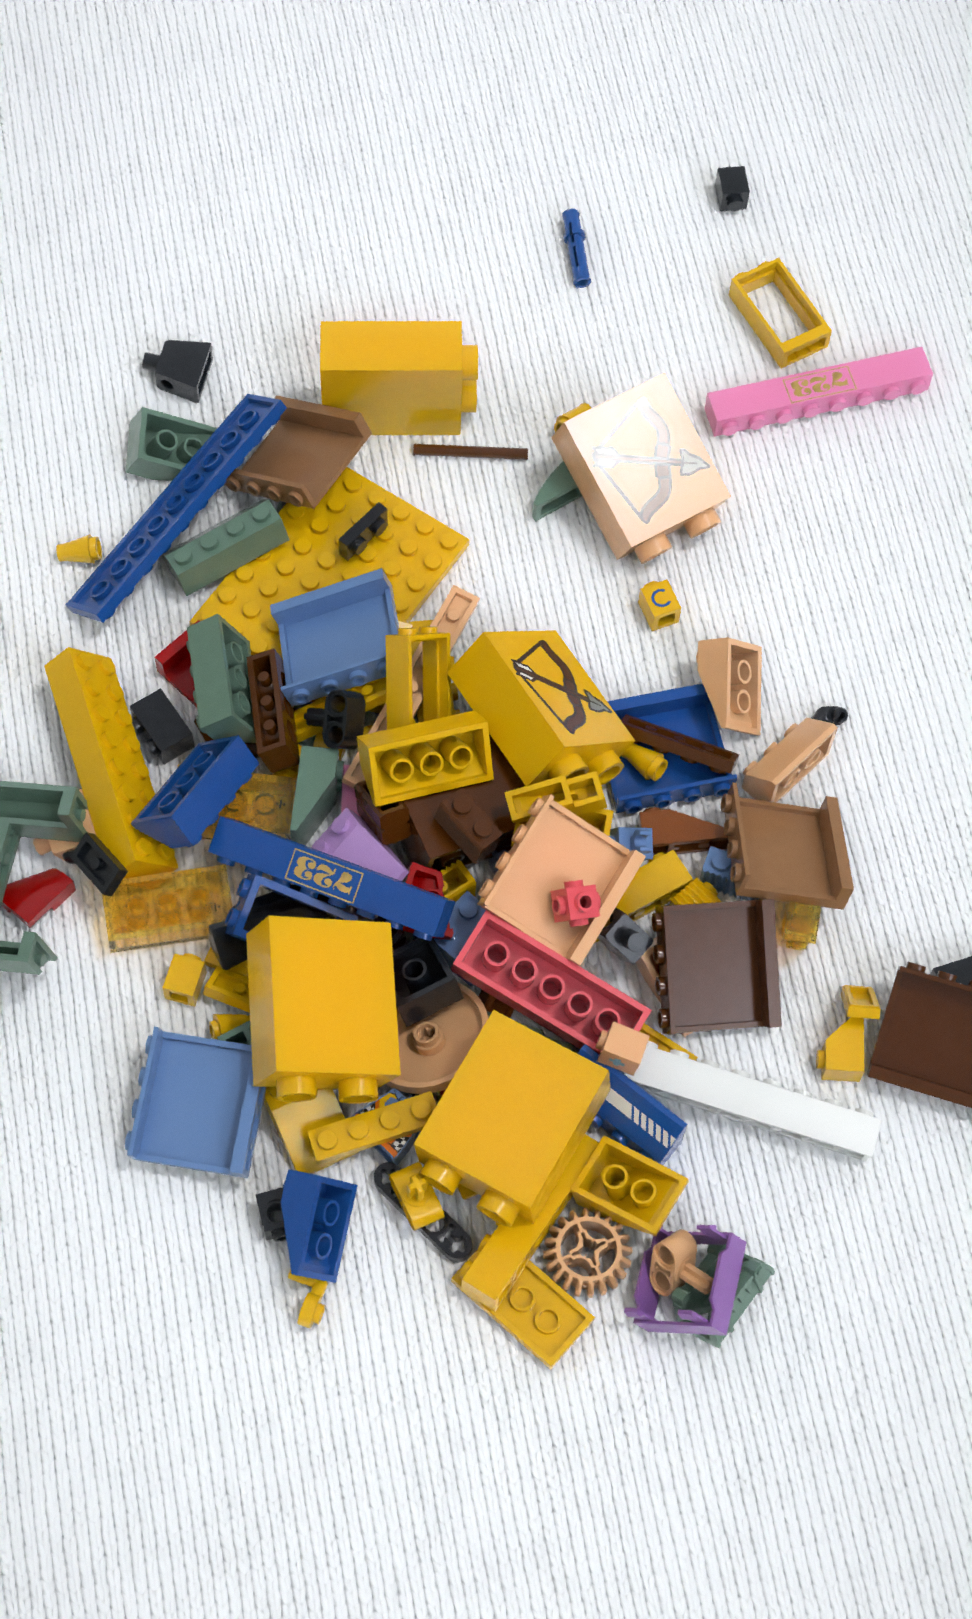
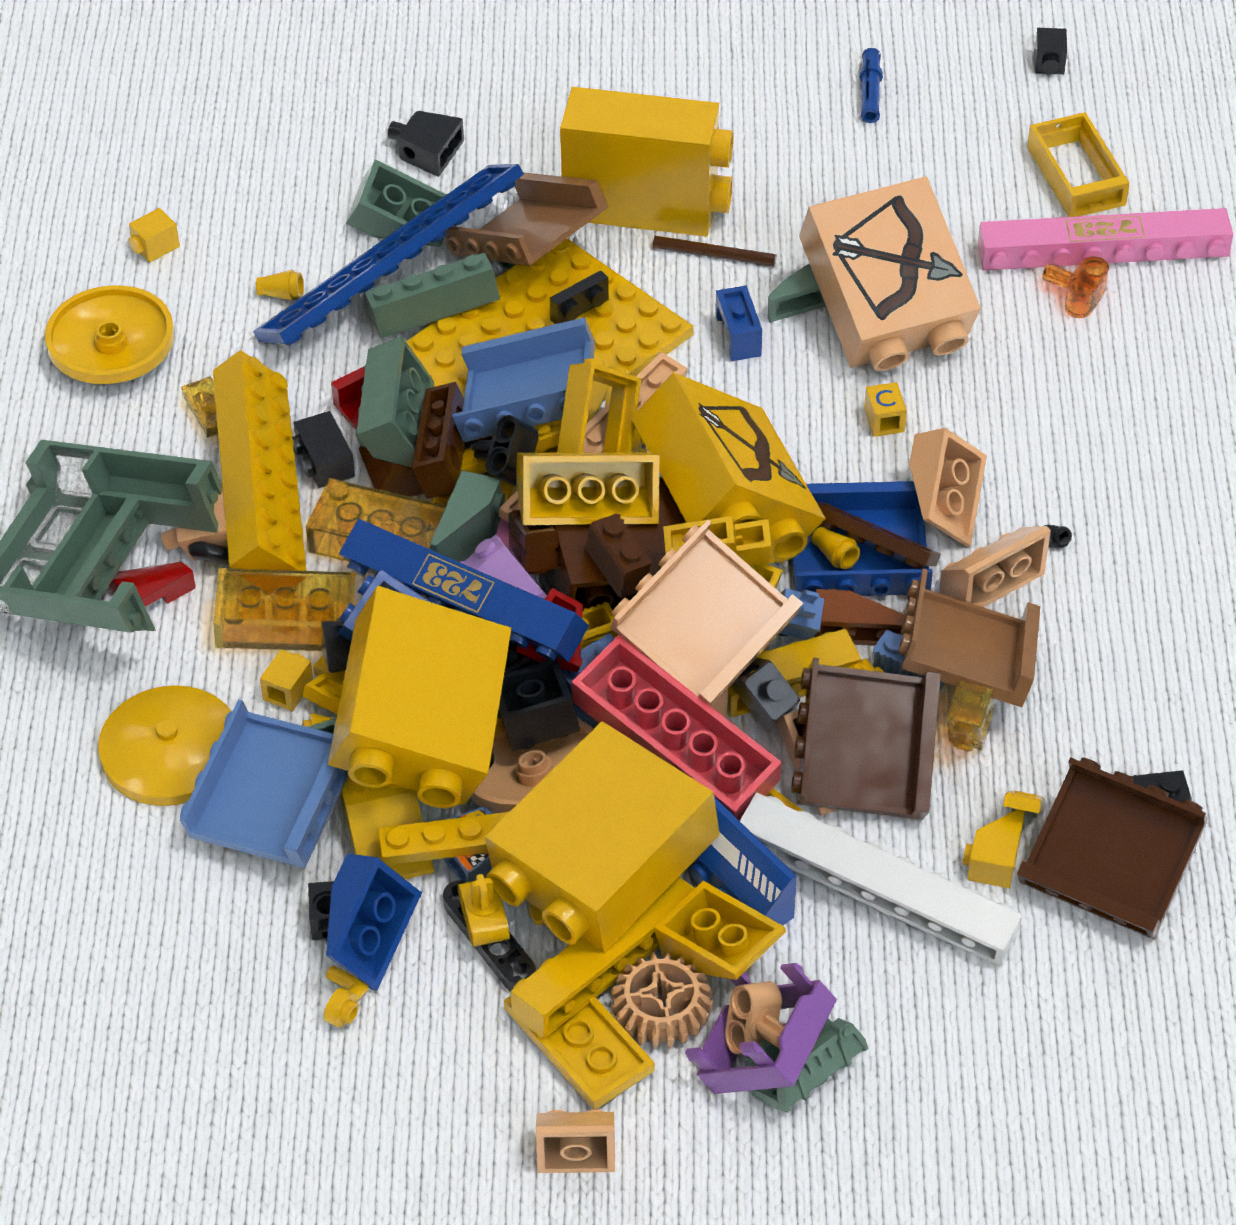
camera: 15 degrees right, 15 degrees down
(37, 690) = (201, 401): none -> clear yellow plate
(88, 1062) = (160, 743): none -> yellow dish
(99, 864) = (220, 548): black plate -> none
(197, 792) = (342, 495): blue slope -> none
(512, 531) = (741, 322): none -> blue panel
(544, 1406) = (575, 1141): none -> light nougat slope
(575, 903) = (716, 637): coral brick -> none
(622, 1048) = (739, 787): light nougat brick -> none
(805, 444) = (1083, 286): none -> clear orange beam

